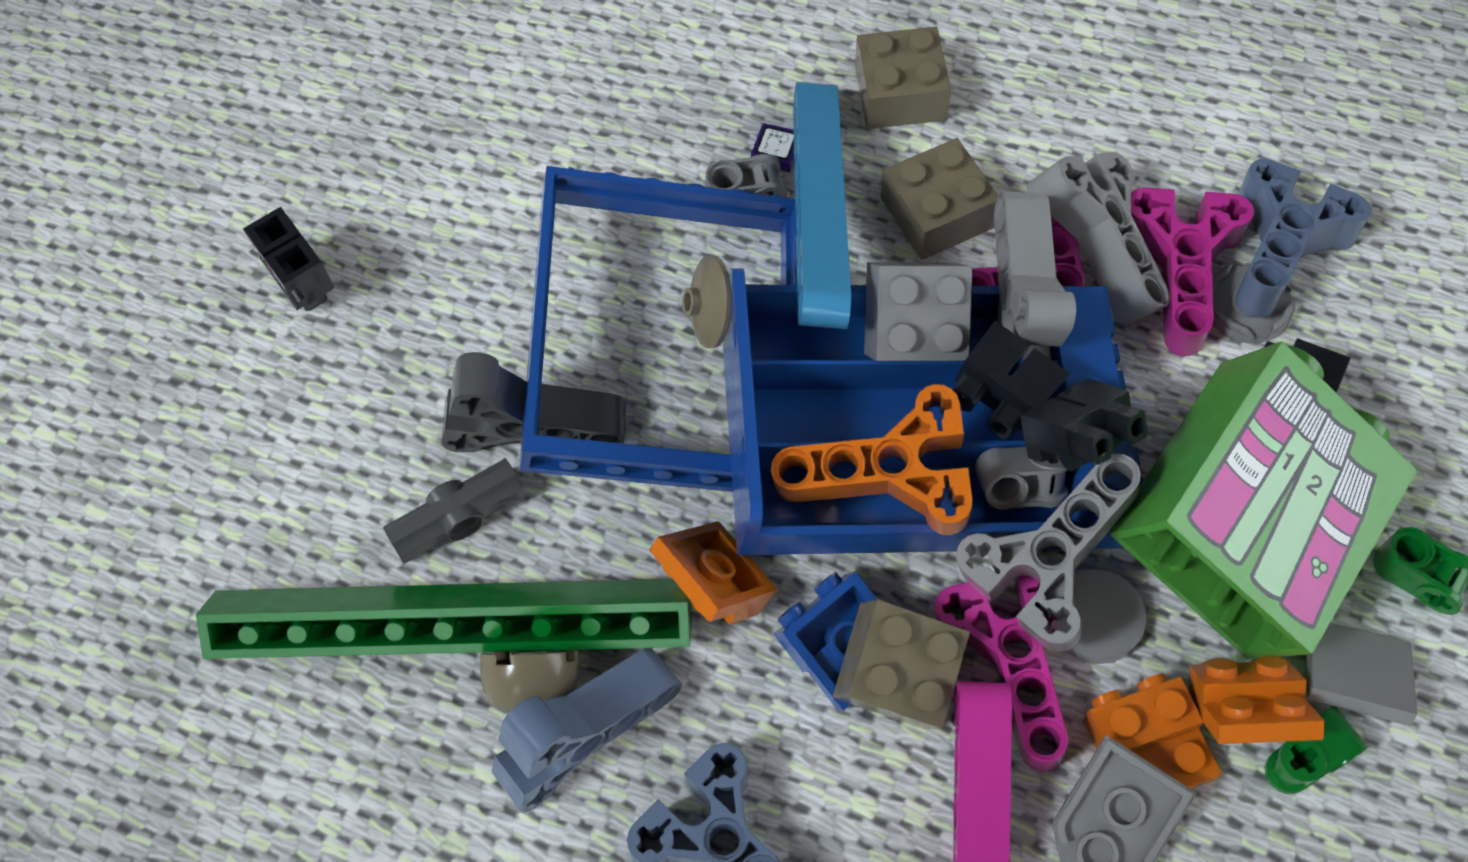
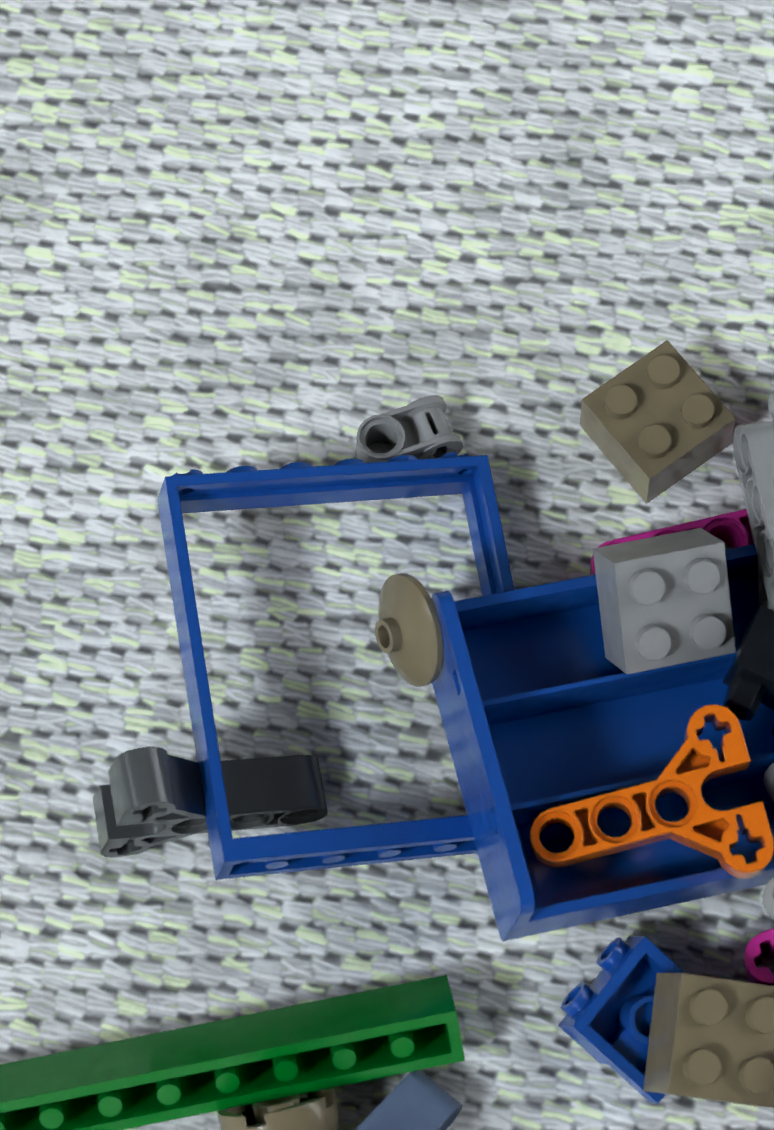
camera: 10 degrees left, 5 degrees up
(454, 510) = (138, 936): dark grey piece -> none
(713, 574) = (474, 967): orange plate -> none
(777, 142) = (434, 373): tile -> none
(820, 209) = (516, 469): dark azure beam -> none
(902, 77) = (579, 256): dark tan brick -> none

